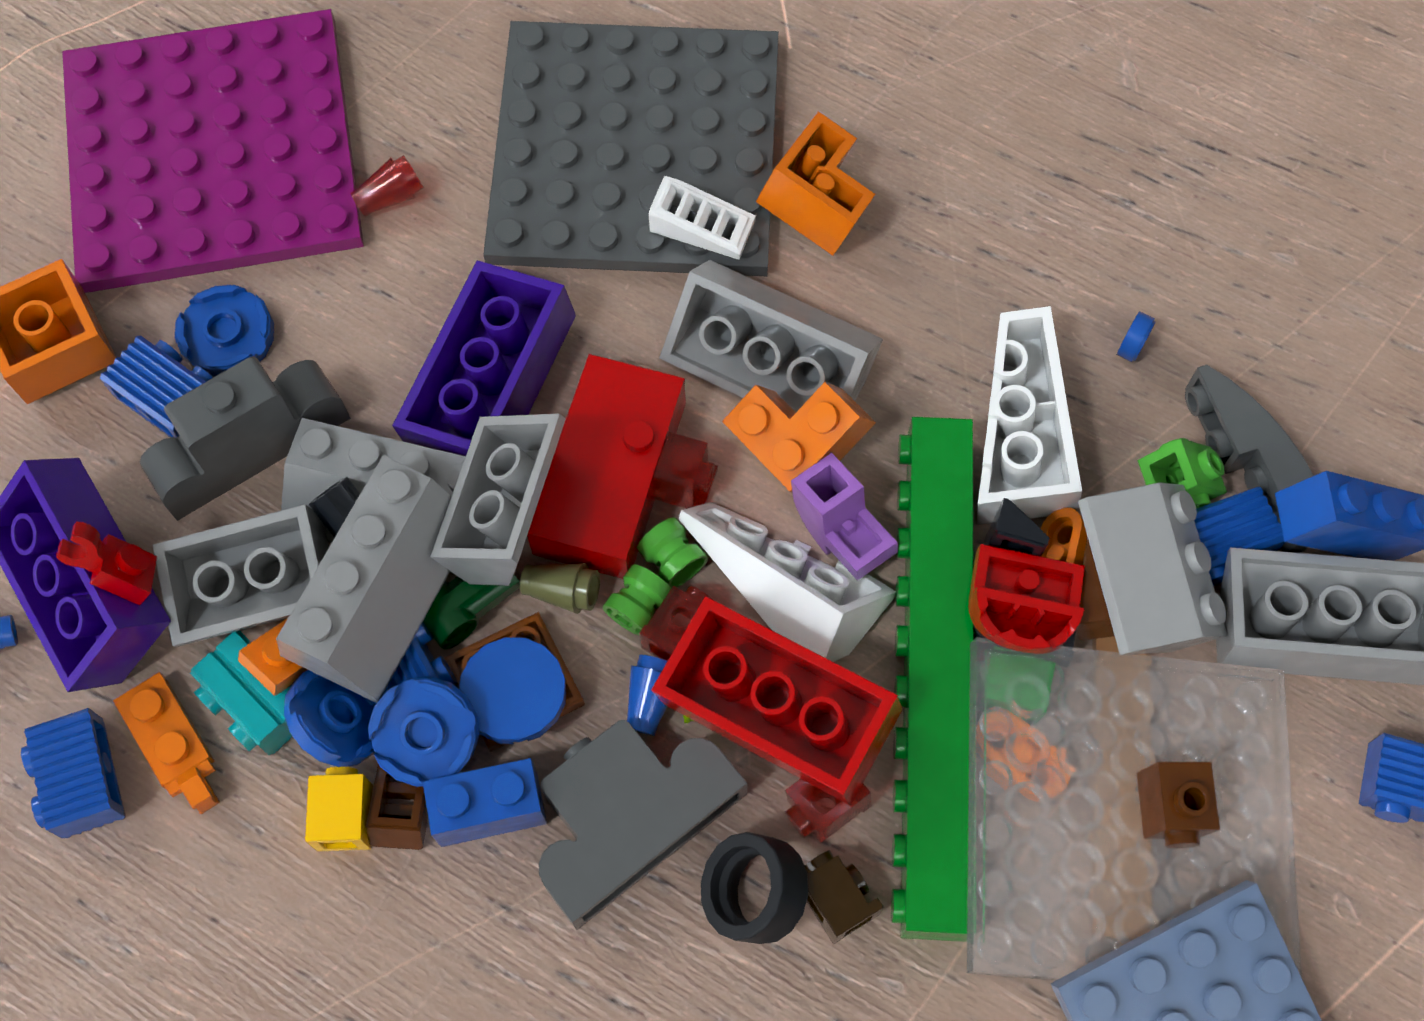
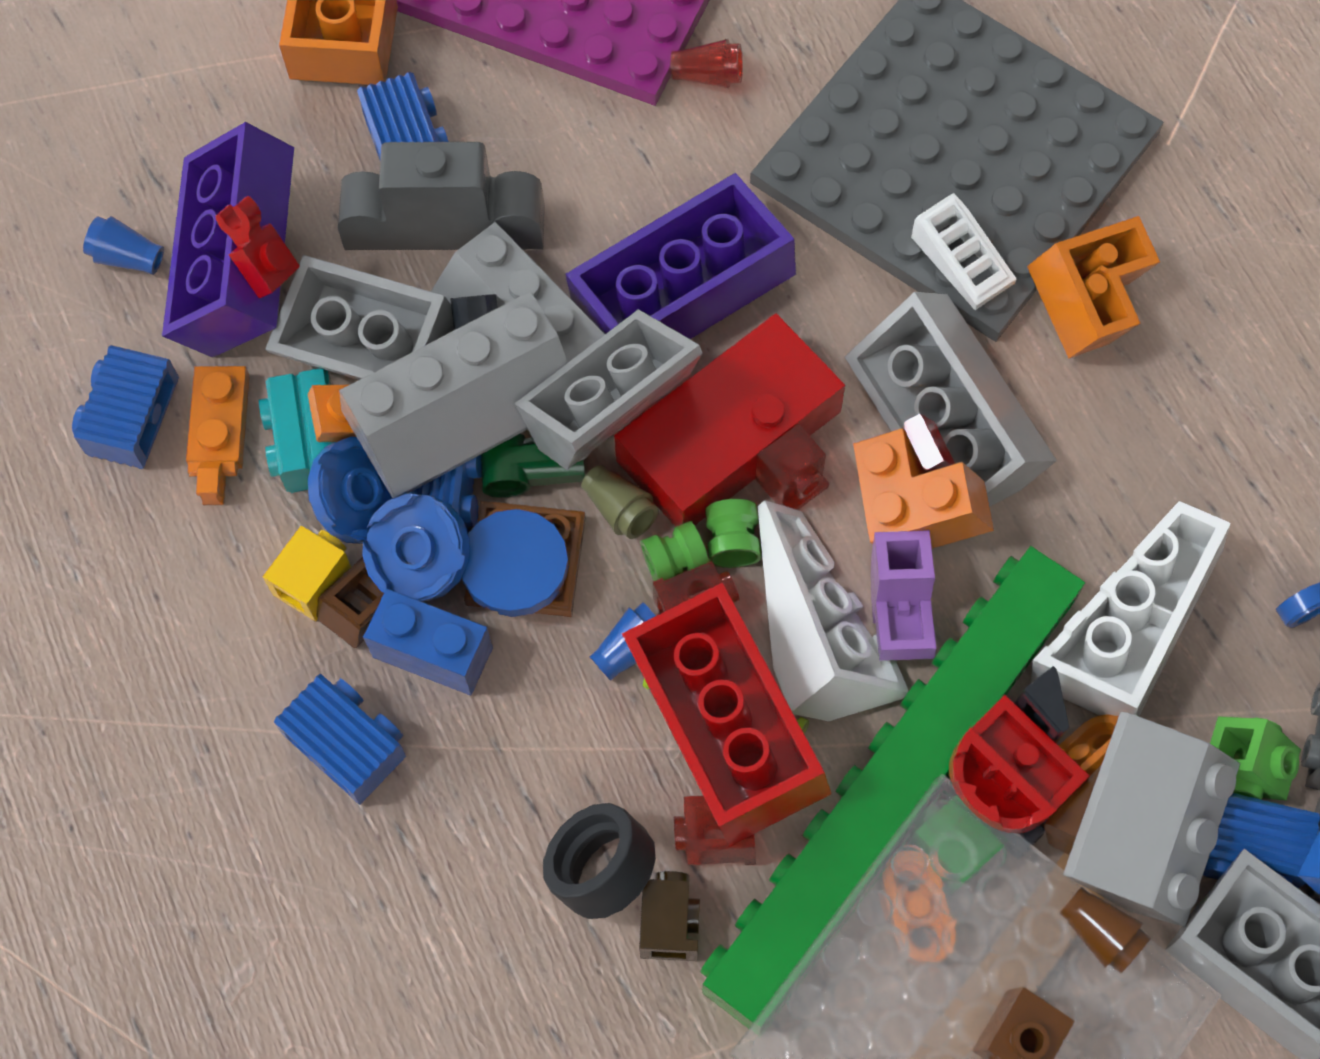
camera: 35 degrees right, 0 degrees up
(224, 328) = (490, 109): blue tile -> none
(465, 930) = (342, 737): none -> blue brick
(628, 813) = (539, 730): dark grey brick -> none
(782, 386) = (928, 443): none -> tile
(1178, 677) = (1105, 930): none -> reddish brown cone

